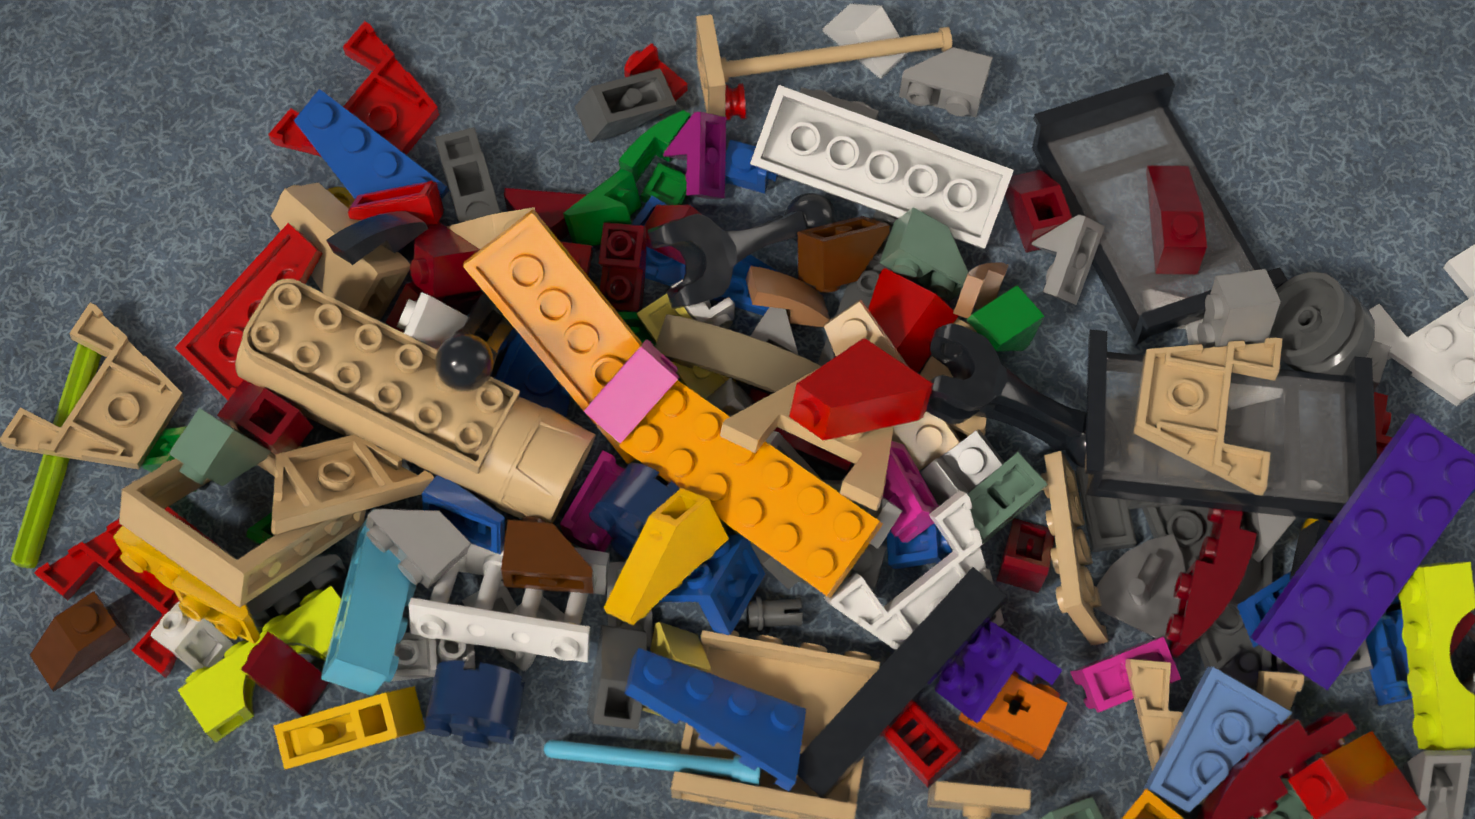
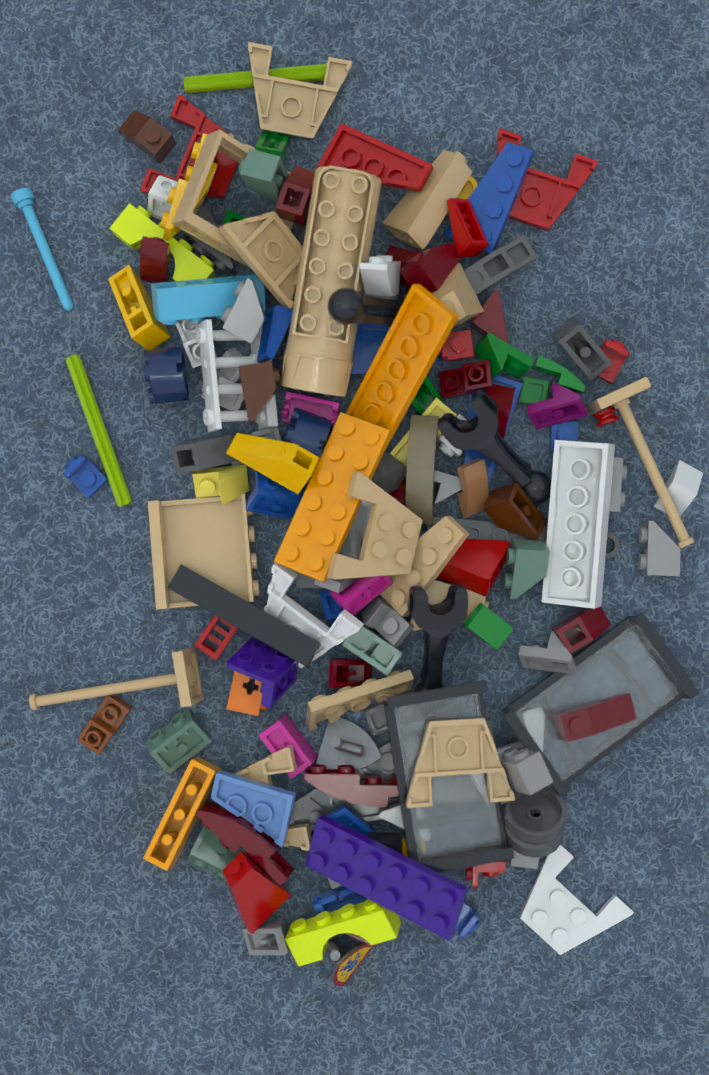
camera: 80 degrees right, 20 degrees up
(389, 229) = (426, 214): black slope -> none
(633, 391) = (372, 410): hinge -> none
(653, 760) = (172, 538): medium azure piece -> none
(746, 721) = (197, 520): blue wing -> none
(770, 613) = (272, 531): dark grey pin -> none
(859, 394) = (399, 548): red slope -> none
(980, 287) = (509, 606): medium nougat slope -> none

